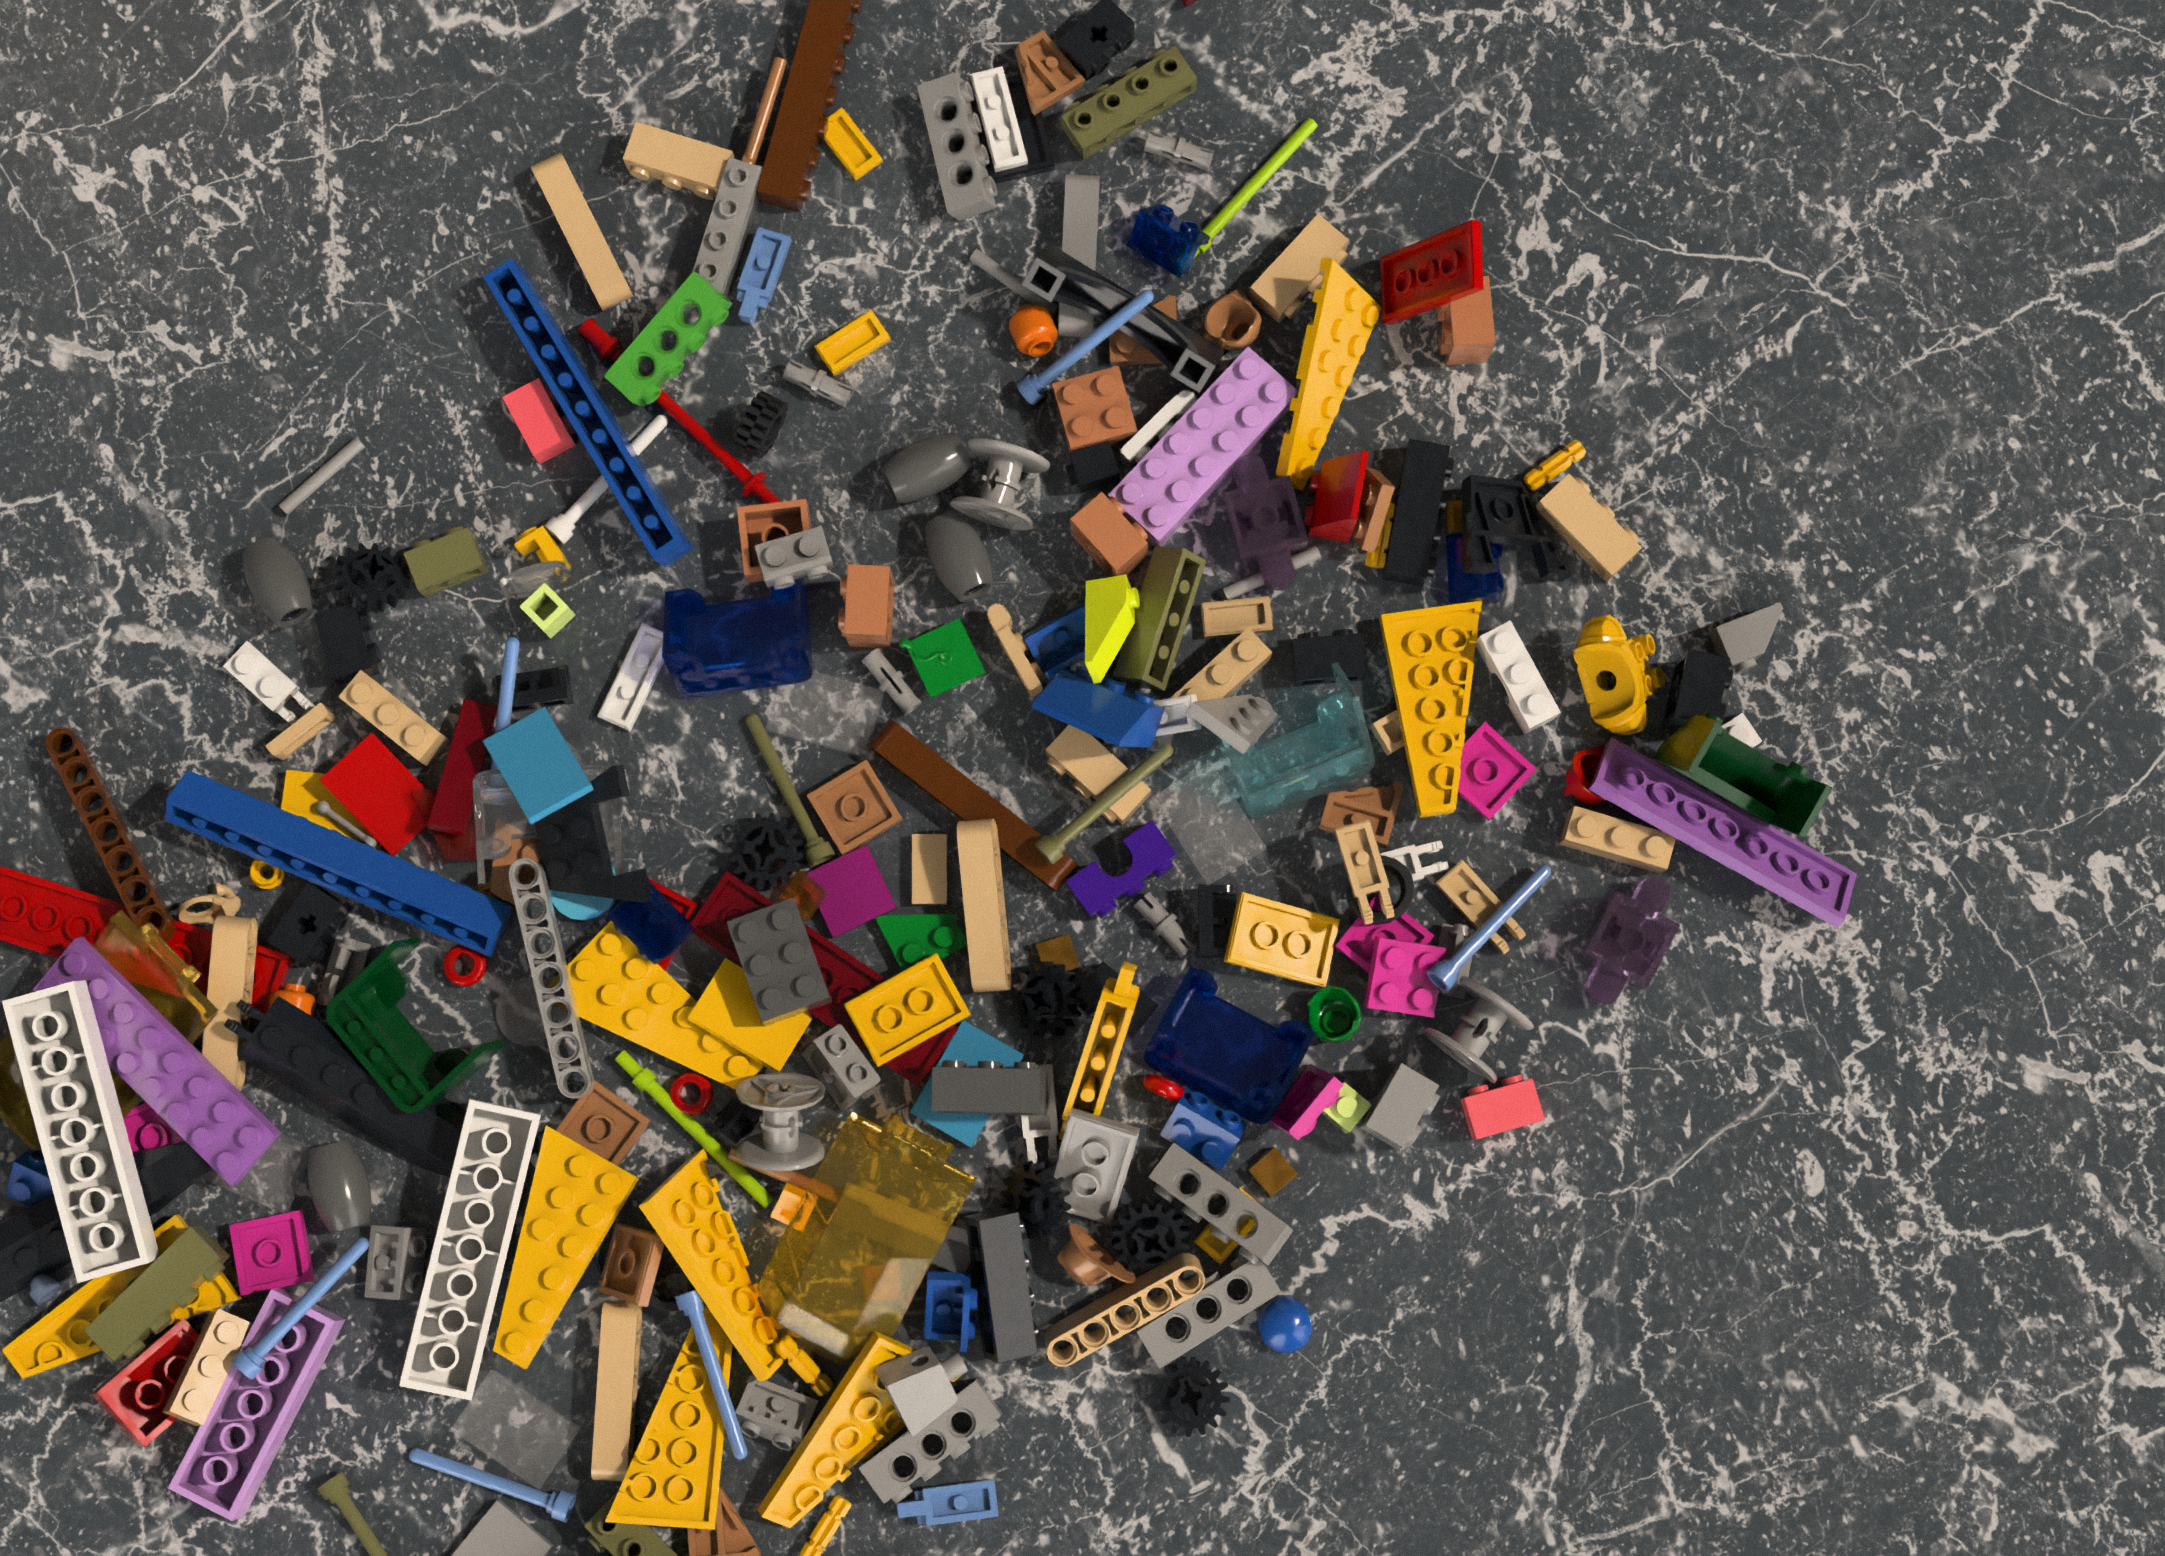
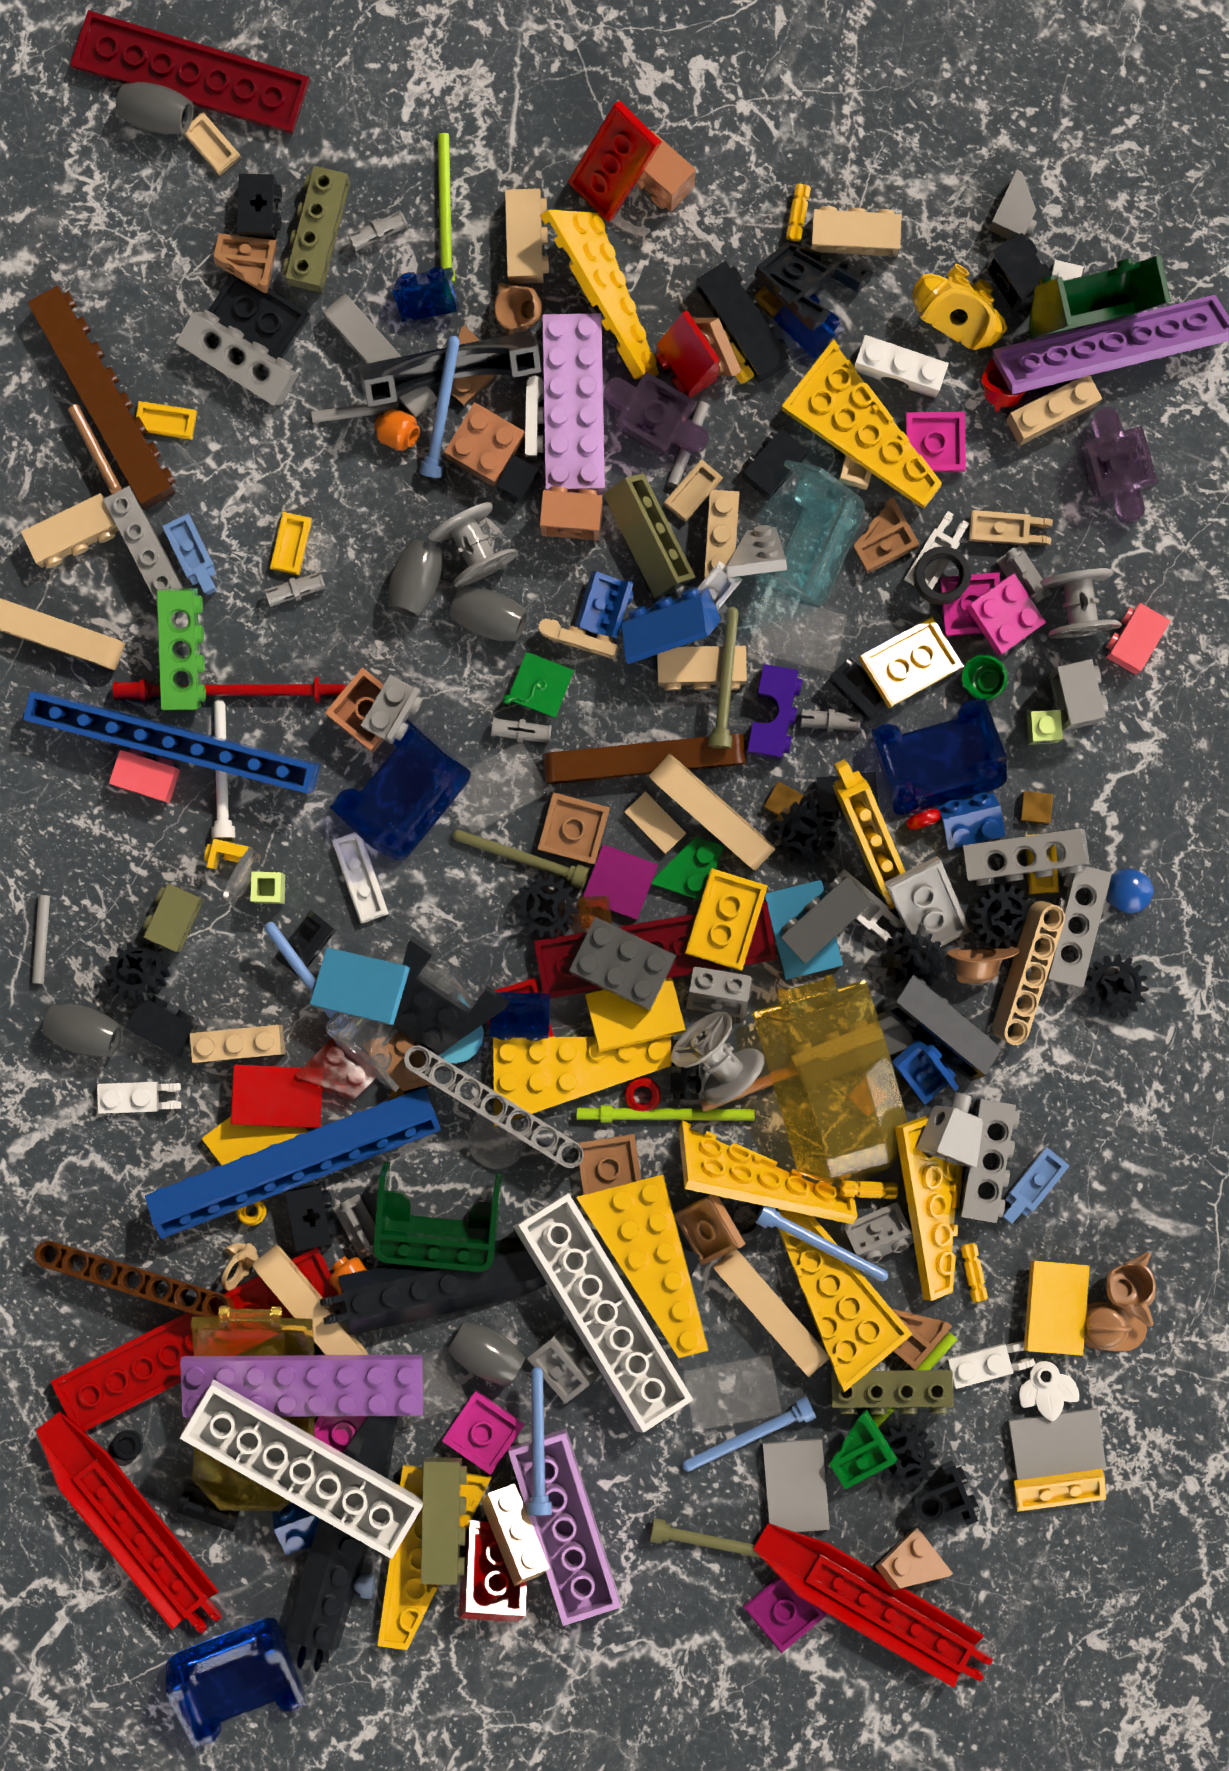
camera: 40 degrees left, 5 degrees up
(301, 731) = (187, 1106): tan tile -> none
(323, 807) = (247, 1138): light grey hinge -> none
(462, 764) = (311, 1032): dark red tile -> none
(462, 980) = (436, 1161): red piece -> none
(761, 424) = (287, 648): black tyre -> none
(787, 1203) = (767, 1103): yellow plate -> none
(868, 607) = (465, 696): nougat brick -> none
(998, 119) = (246, 316): white tile -> none
(1108, 620) = (621, 565): neon yellow slope -> none
(1306, 1101) = (1020, 744): dark pink plate -> none
(1364, 867) = (923, 570): tan hinge -> none
(1445, 973) = (1029, 589): medium blue piece -> none

